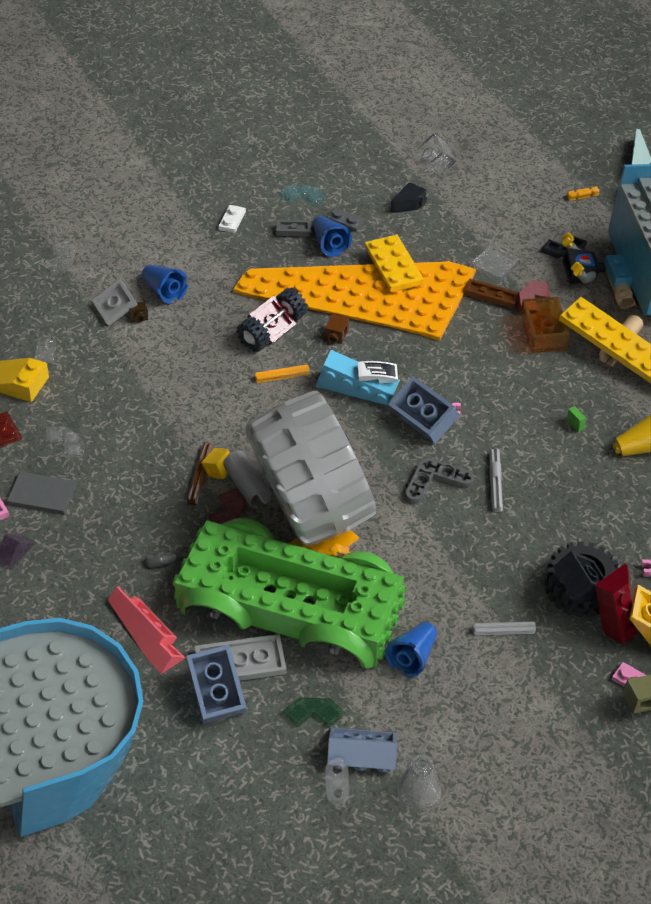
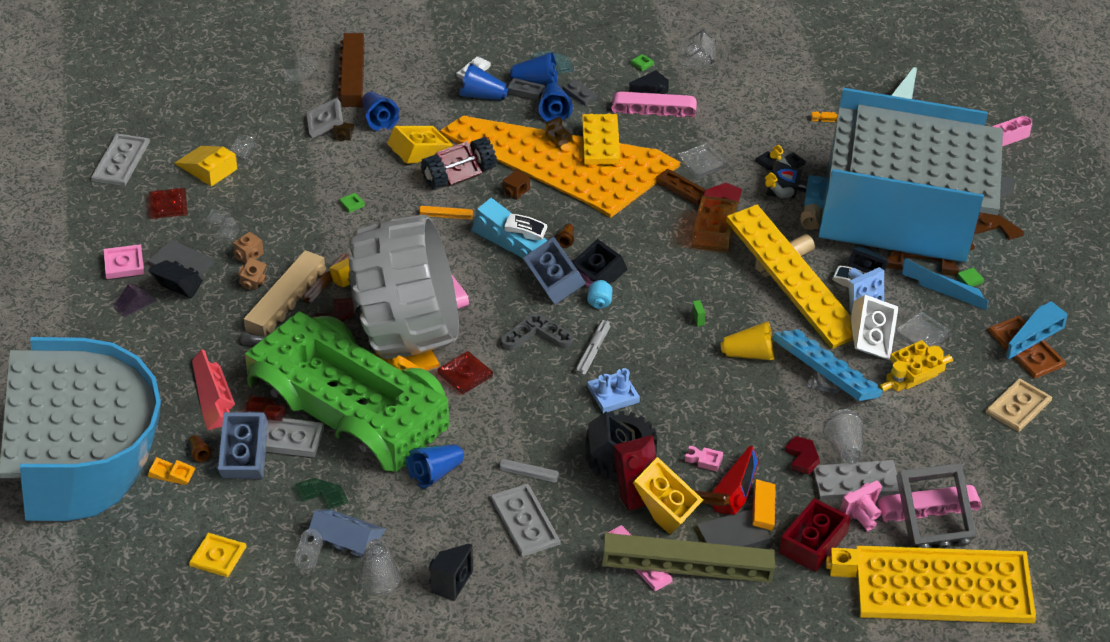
camera: 20 degrees right, 5 degrees down
(51, 513) = (176, 277): none -> black slope
(107, 461) = (248, 246): none -> medium nougat brick
(115, 245) = (352, 68): none -> reddish brown brick
(126, 489) = (252, 274): none -> medium nougat brick
(153, 733) = (166, 471): none -> light orange slope
(165, 699) = (199, 449): none -> reddish brown cone
(168, 503) = (284, 294): none -> tan brick
(184, 385) = (352, 202): none -> bright green tile
(208, 629) = (266, 406): none -> clear red tile
(218, 307) = (417, 142): none -> yellow slope
(242, 814) = (217, 555): none -> yellow tile
(252, 233) = (482, 85): none -> blue cone
(296, 207) = (536, 70): none -> blue cone
(350, 266) = (557, 133): none -> dark brown bracket
(387, 177) = (642, 62): none -> bright green tile
(389, 539) = (465, 372): none -> clear red plate
(410, 369) = (566, 232): none -> reddish brown cone
(421, 216) = (654, 104): none -> bright pink beam
(462, 390) = (600, 262): none -> black slope
(475, 423) = (599, 294): none -> medium azure head
(494, 765) = (451, 571): none -> black slope
(528, 683) = (525, 520): none -> light grey tile
(541, 521) = (613, 391): none -> light blue plate

